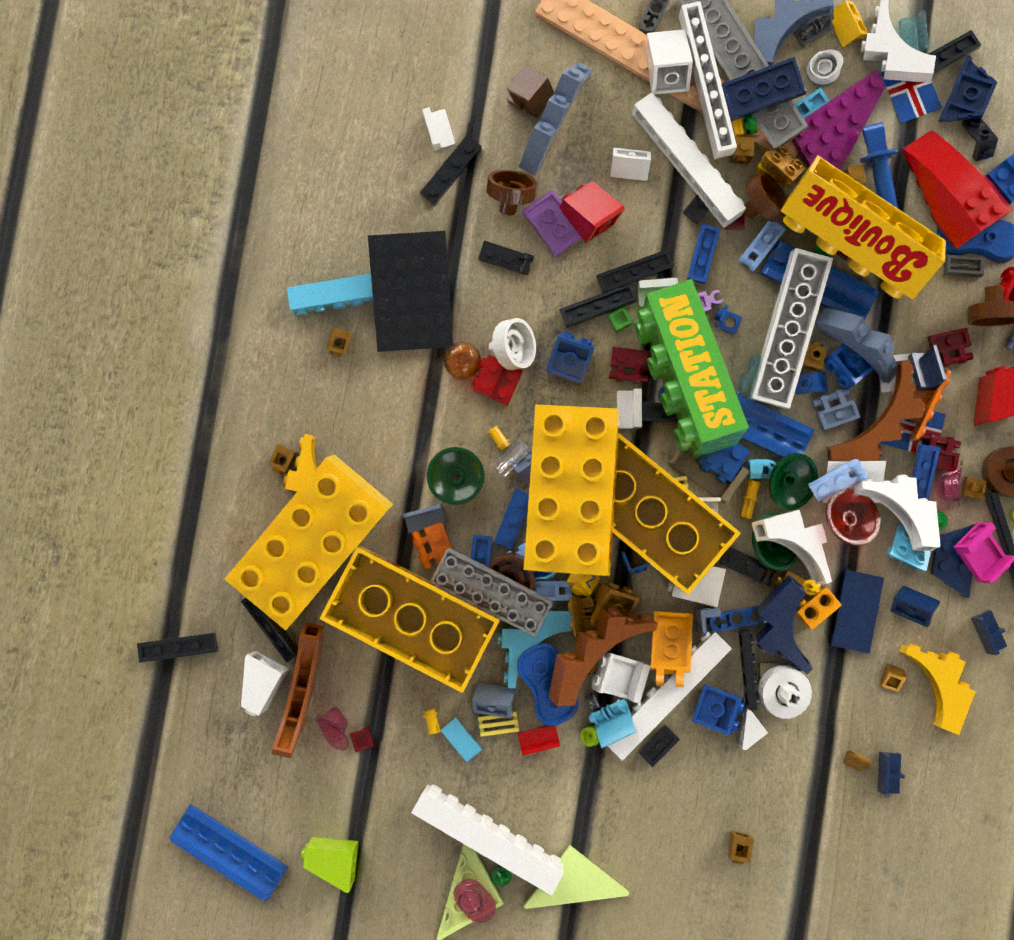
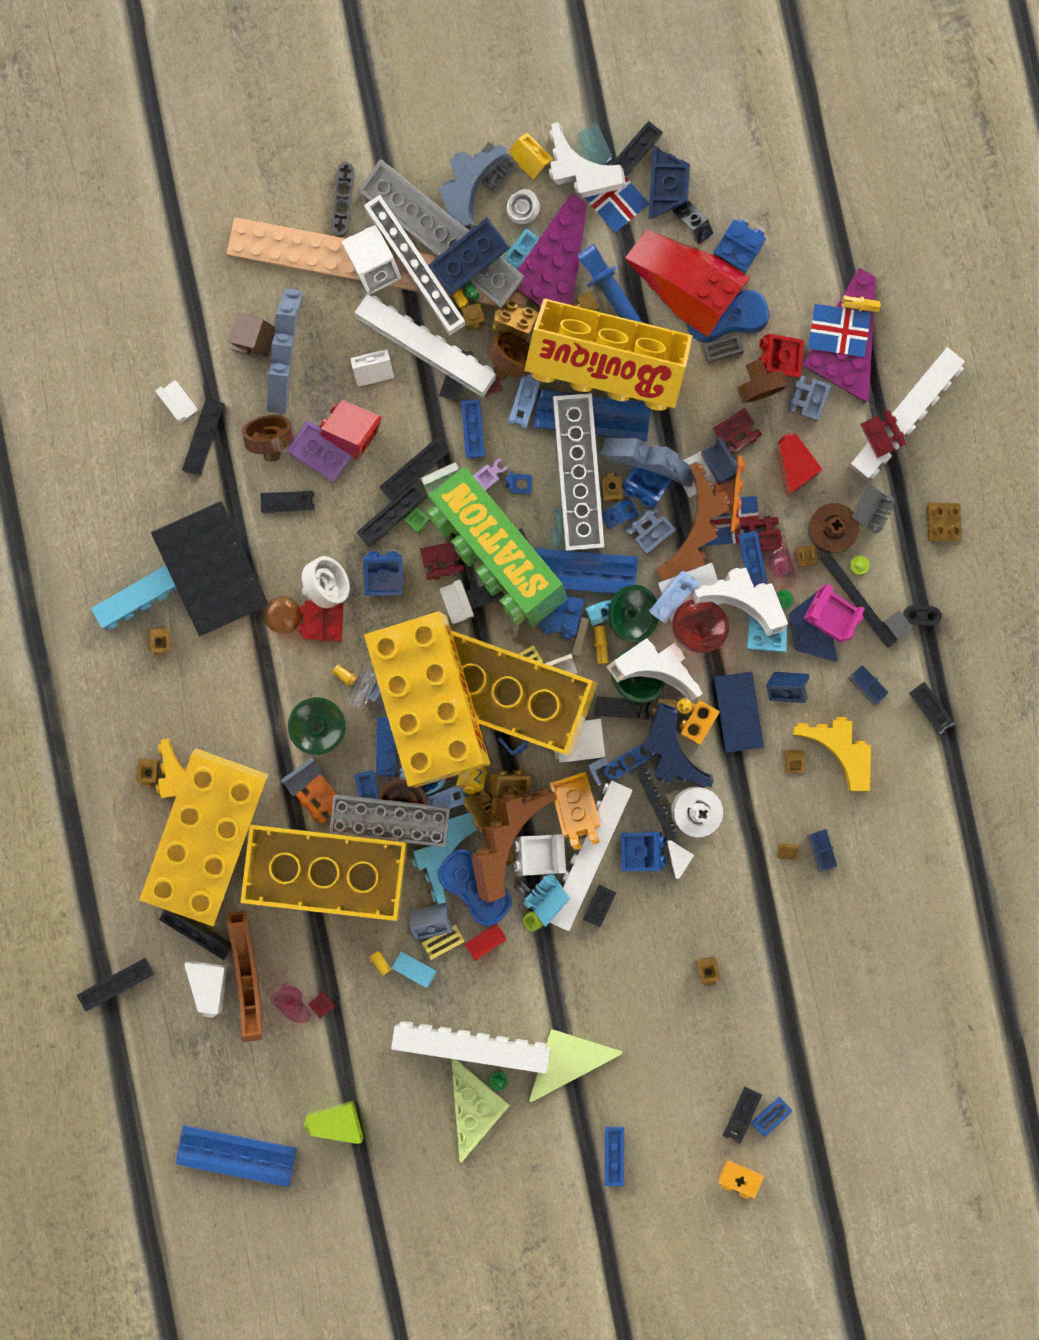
camera: 25 degrees left, 0 degrees up
(474, 900) = (481, 1112): clear pink piece -> none

